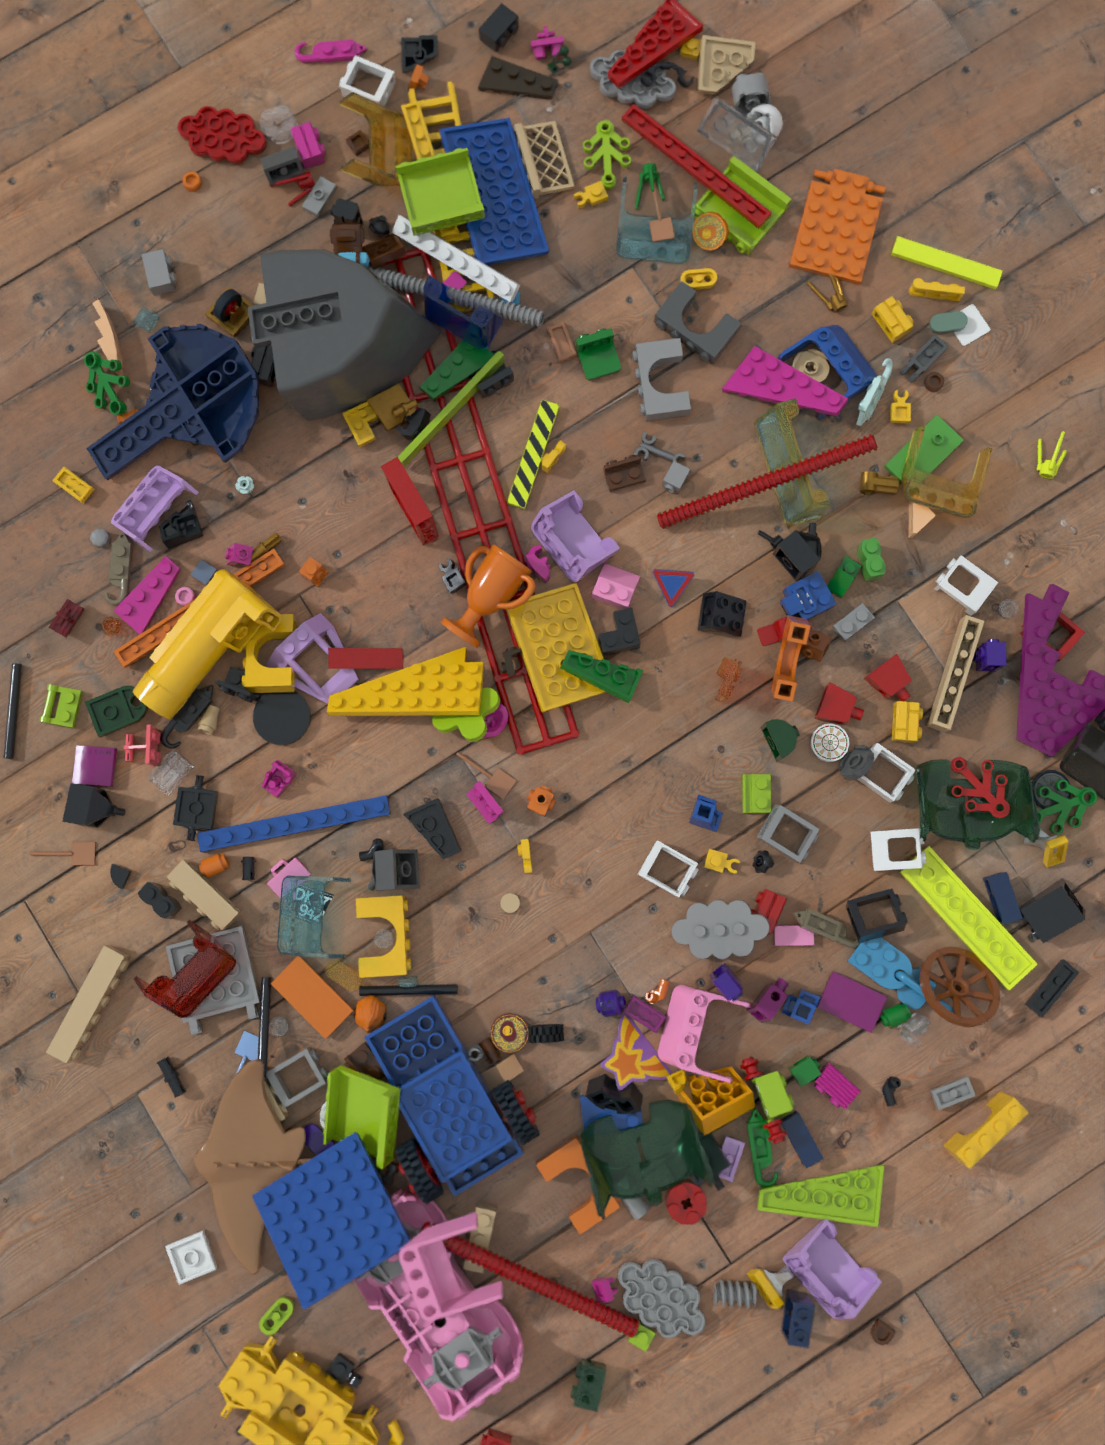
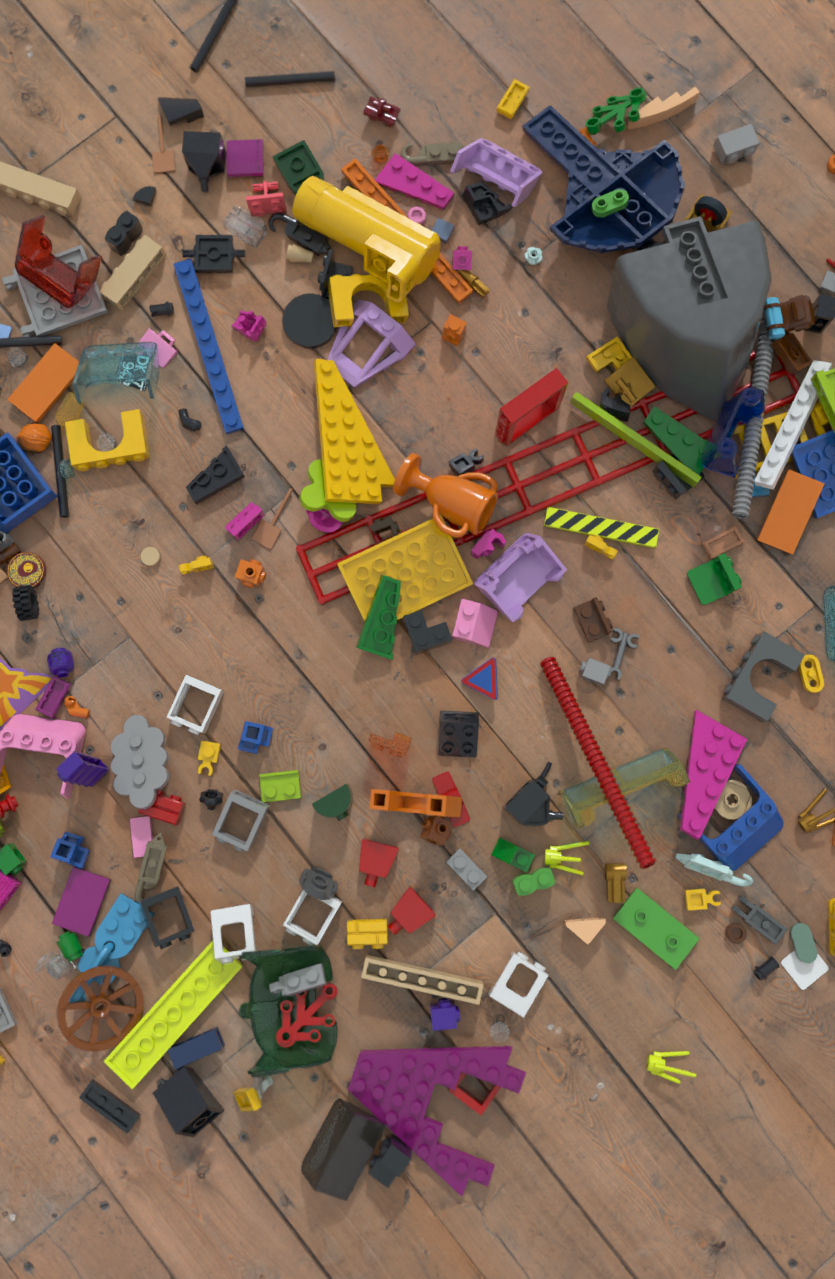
camera: 80 degrees right, 0 degrees up
(28, 829) = (180, 109): none -> black slope
(67, 707) = (298, 126): lime plate -> none
(100, 538) = (464, 131): light grey tile -> none
(146, 319) = (687, 141): clear light blue tile -> none
(208, 397) = (611, 203): none -> bright green plate
(214, 865) = (161, 277): orange brick -> none
(365, 658) = (374, 390): red sticker -> none
(379, 225) = (818, 347): black piece -> none
(395, 870) = (168, 443): dark grey piece -> none
(455, 280) = (769, 427): dark pink sticker -> none
(540, 274) = (790, 511): none -> orange tile
(657, 404) = (718, 631): light grey arch -> none
(763, 1006) = (65, 815): magenta torso -> none
(807, 597) = (485, 818): blue piece -> none
(829, 742) = (339, 855): white tile -> none
(850, 539) = (554, 858): none -> neon yellow plant
(893, 319) = (797, 882): yellow brick -> none
(940, 492) = (613, 947): clear yellow windscreen -> none
(948, 790) = (299, 981): none -> light grey hinge
(969, 359) = (766, 968): none -> black pin
(1048, 779) = (313, 1091): dark grey wheel -> none
(1064, 804) = (298, 1106): green plant -> none

